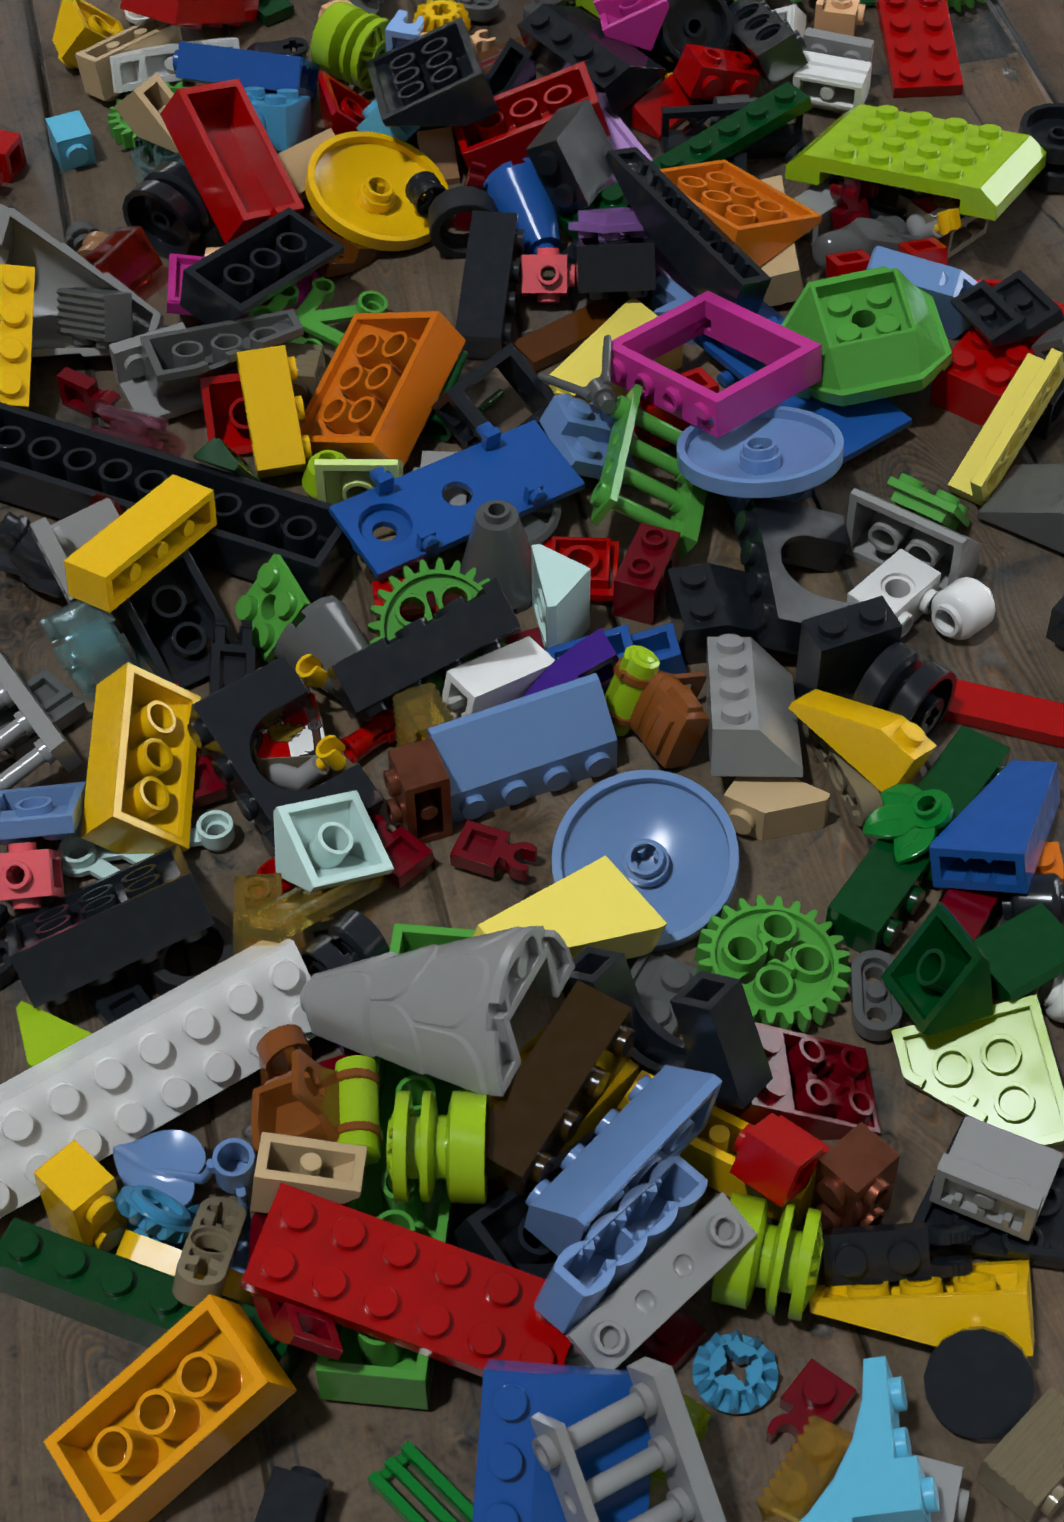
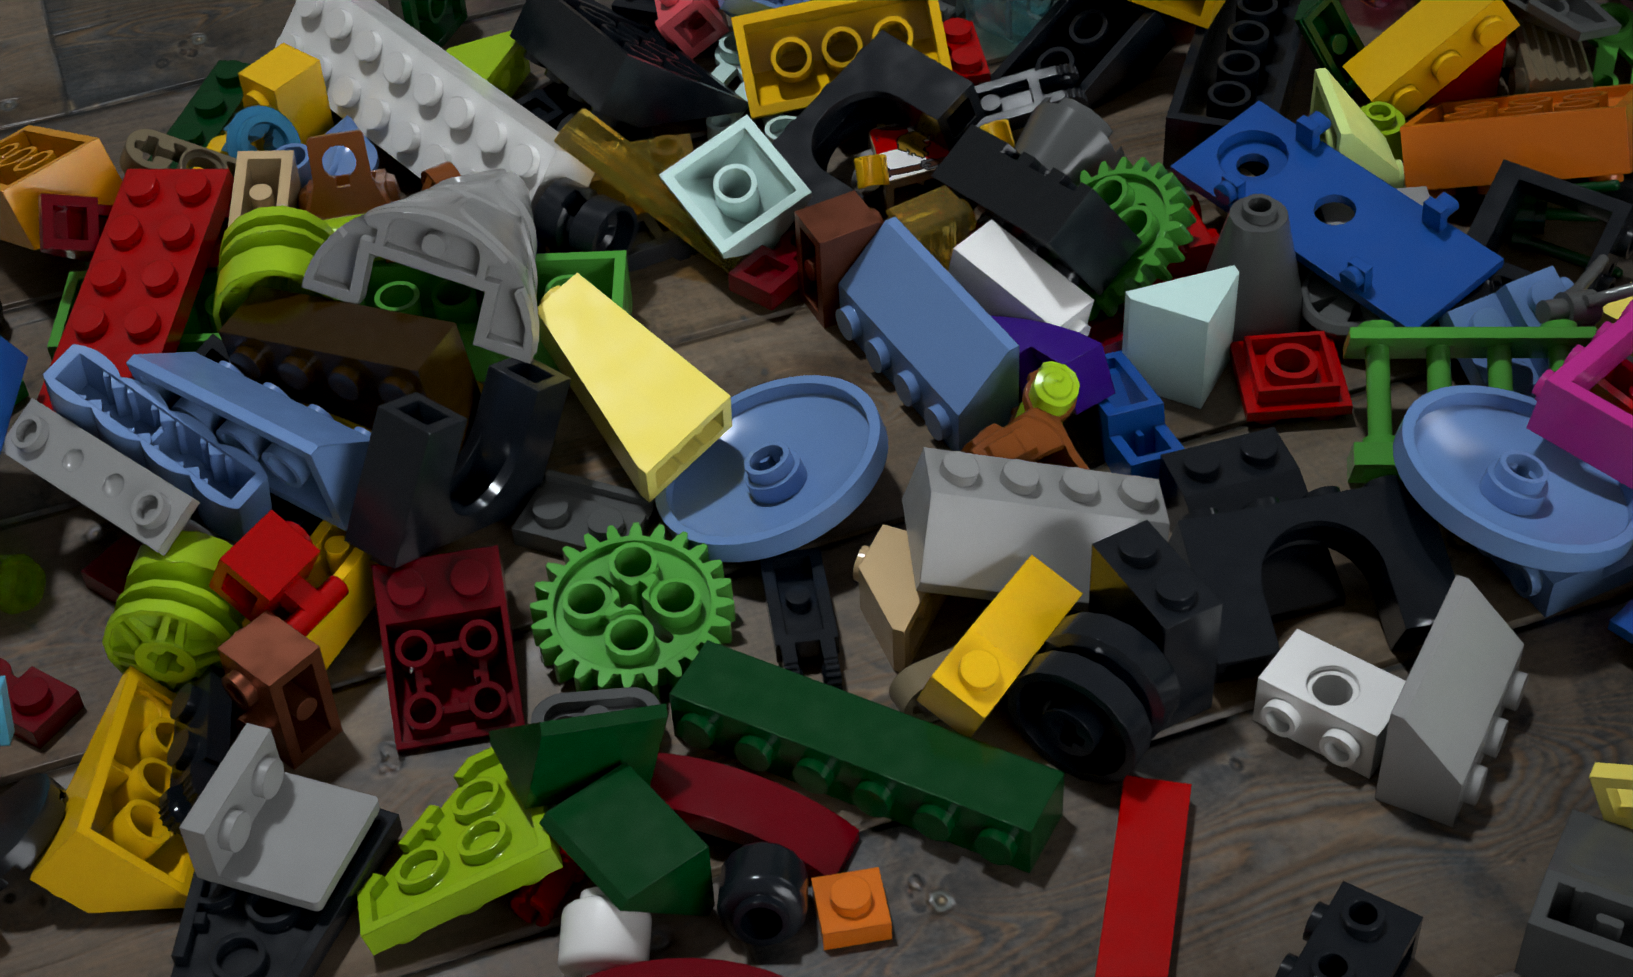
camera: 85 degrees right, 5 degrees down
(271, 605) = (1135, 107): bright green piece -> none
(488, 848) = (786, 344): dark red plate -> none
(642, 577) = (1308, 419): dark red brick -> none
(728, 1392) = (56, 647): dark azure gear -> none
(792, 866) = (801, 612): none -> black hinge
(907, 819) = (857, 708): green plate -> none
(941, 508) = (1542, 726): bright green piece -> none
(963, 608) = (1331, 785): white head -> none
(999, 832) = (876, 830): blue slope -> none

